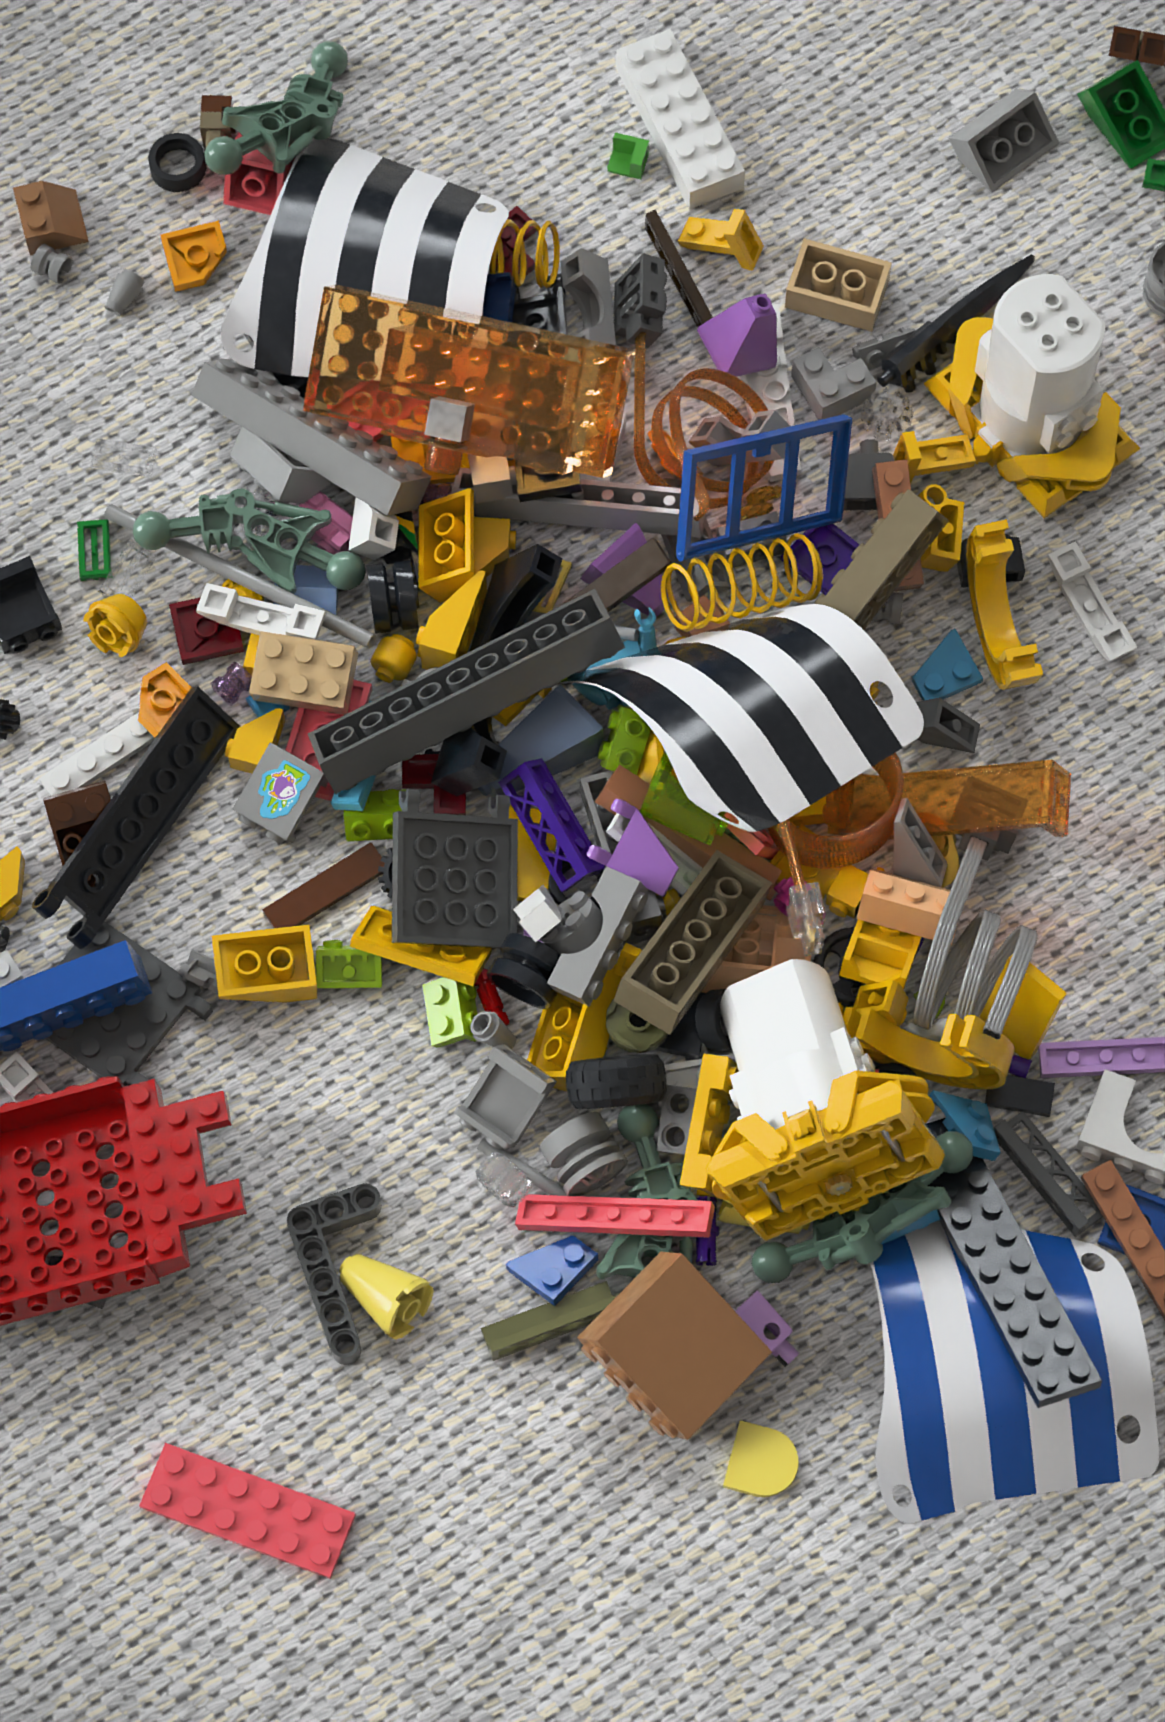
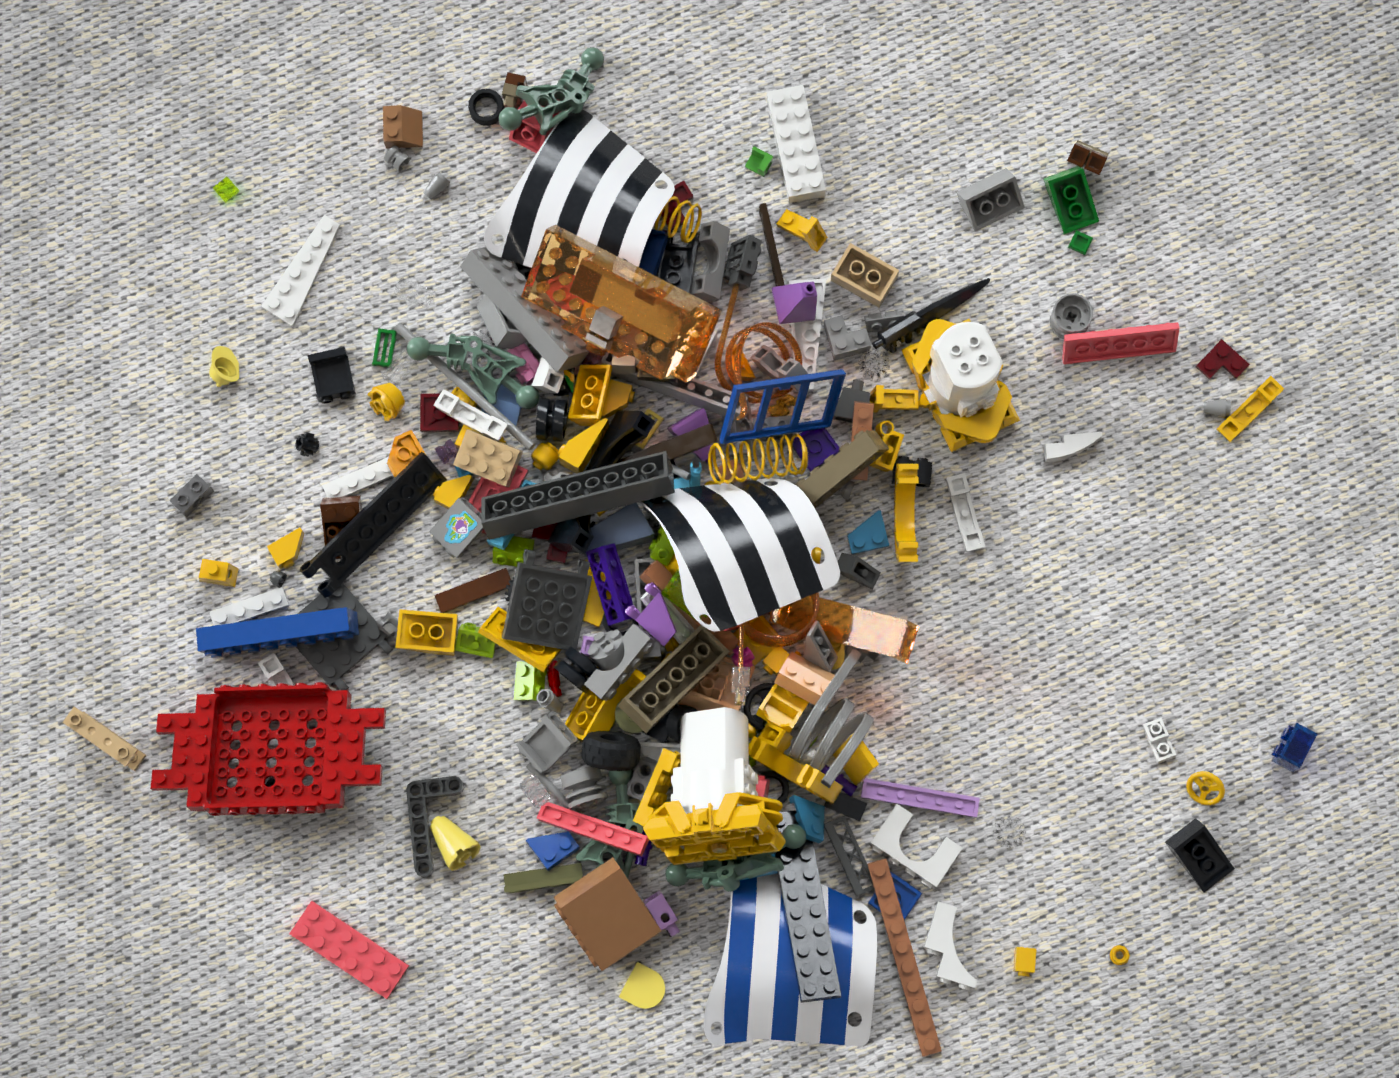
camera: 15 degrees right, 10 degrees up
(193, 254) = (483, 169): light orange plate -> none
(538, 913) = (590, 638): white slope -> none

